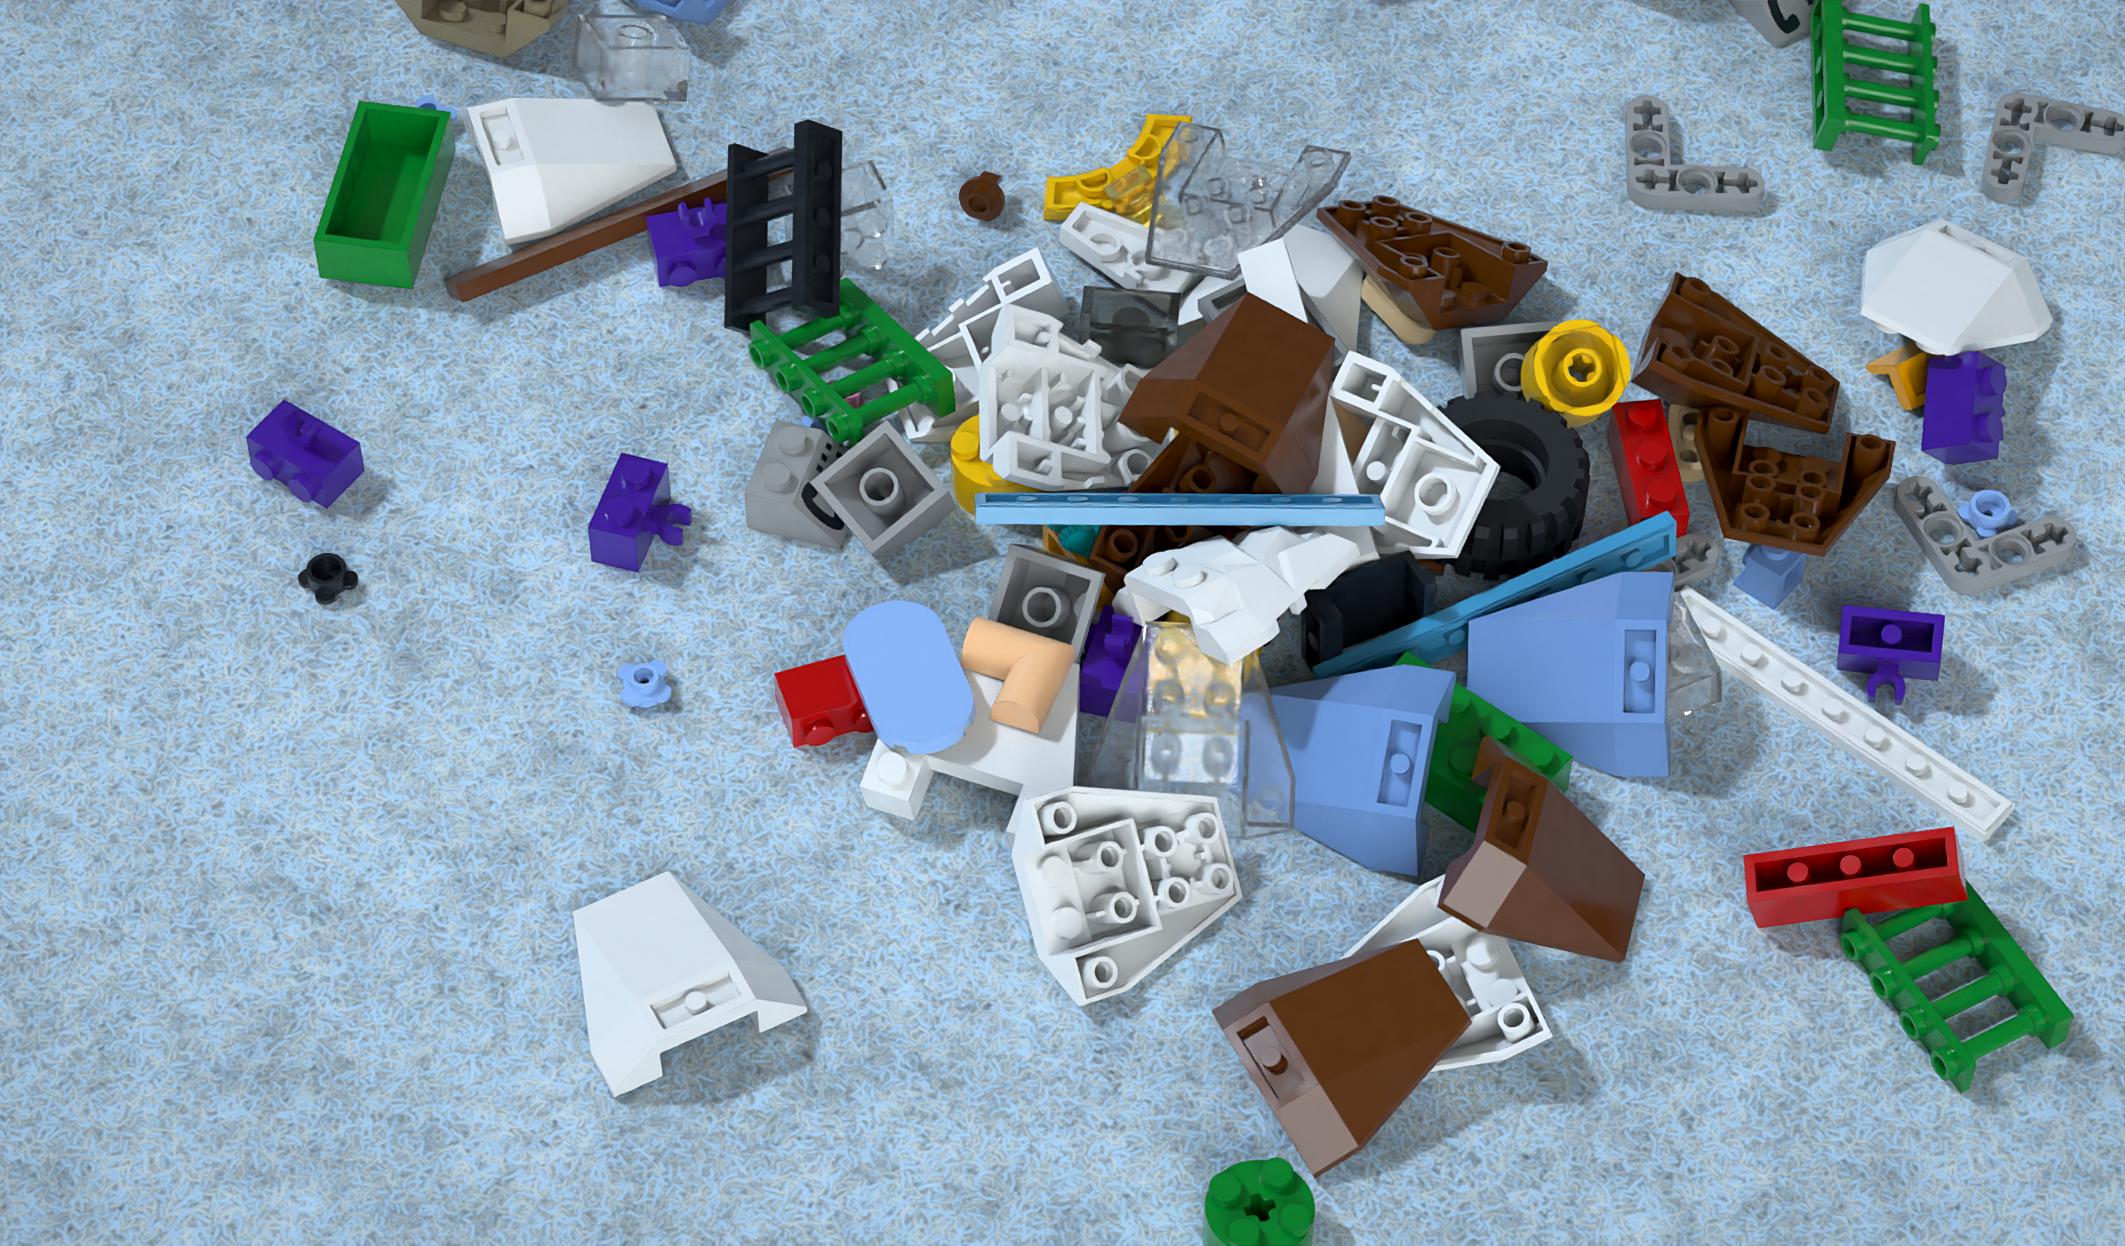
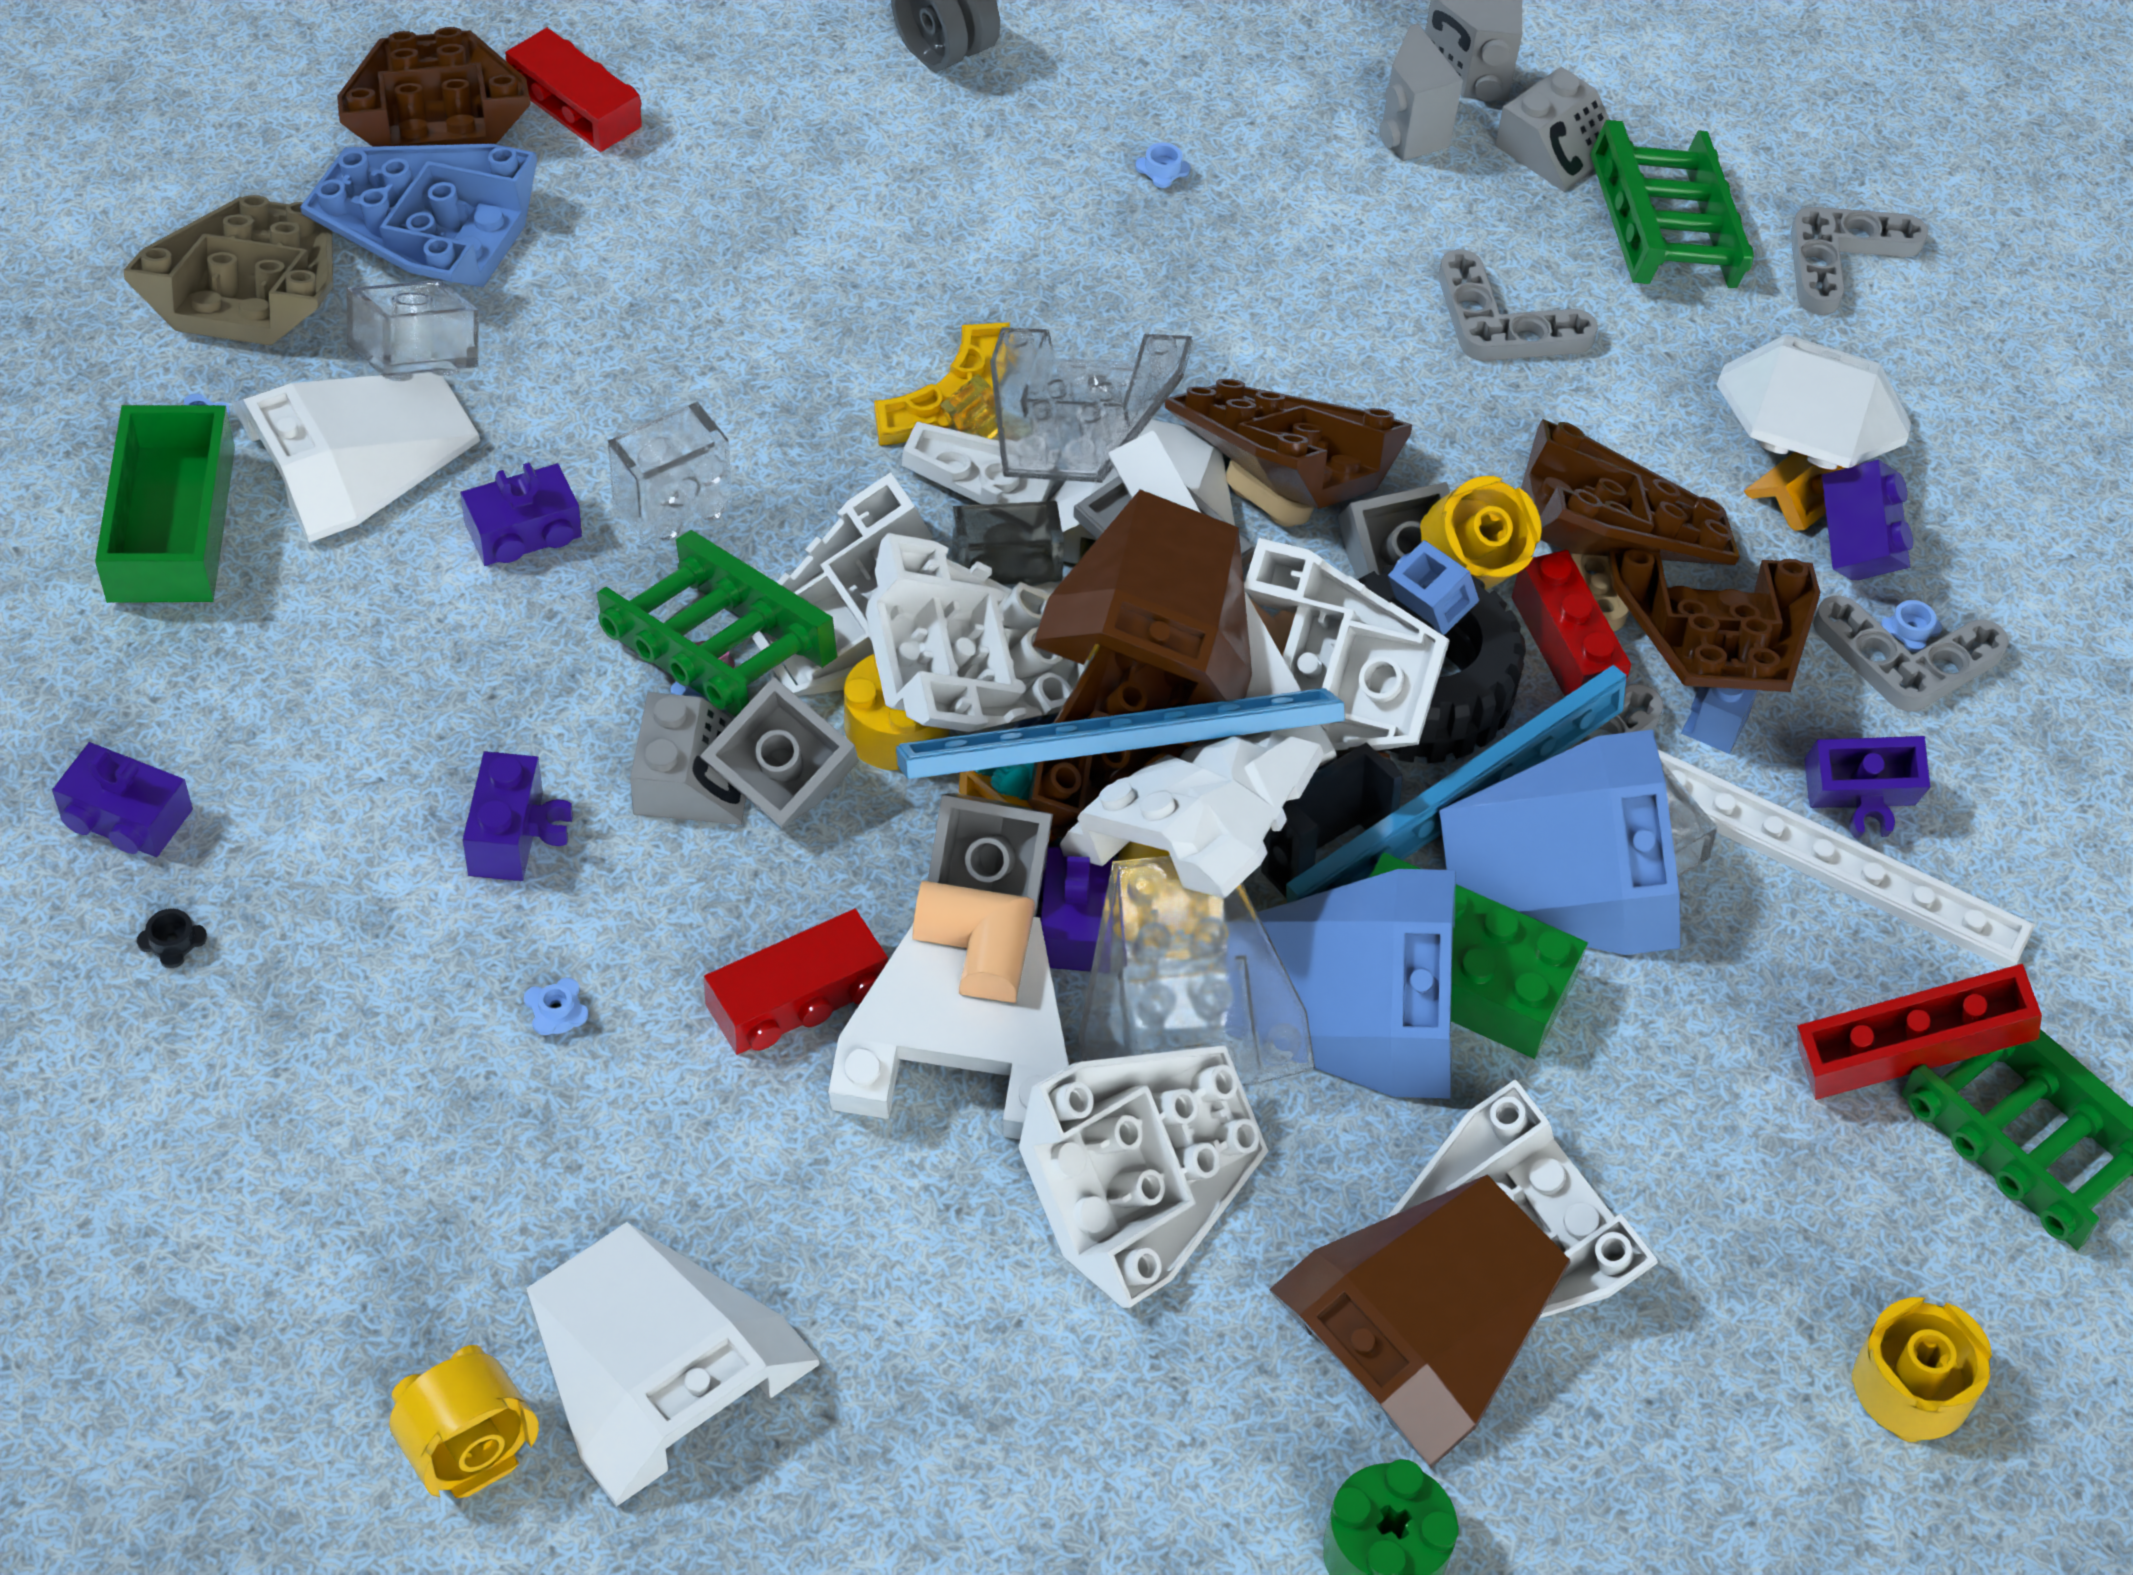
camera: 15 degrees left, 0 degrees up
(497, 1007) = (461, 1423): none -> yellow brick
(587, 237) = (427, 506): reddish brown tile -> none
(815, 229) = (655, 482): black fence -> none
(908, 676) = (859, 959): light blue tile -> none
(982, 196) = (813, 429): reddish brown plate -> none
(1508, 416) = (1433, 586): none -> medium blue brick
(1540, 866) = (1598, 1073): reddish brown wedge -> none
(1772, 1163) = (1922, 1369): none -> yellow brick

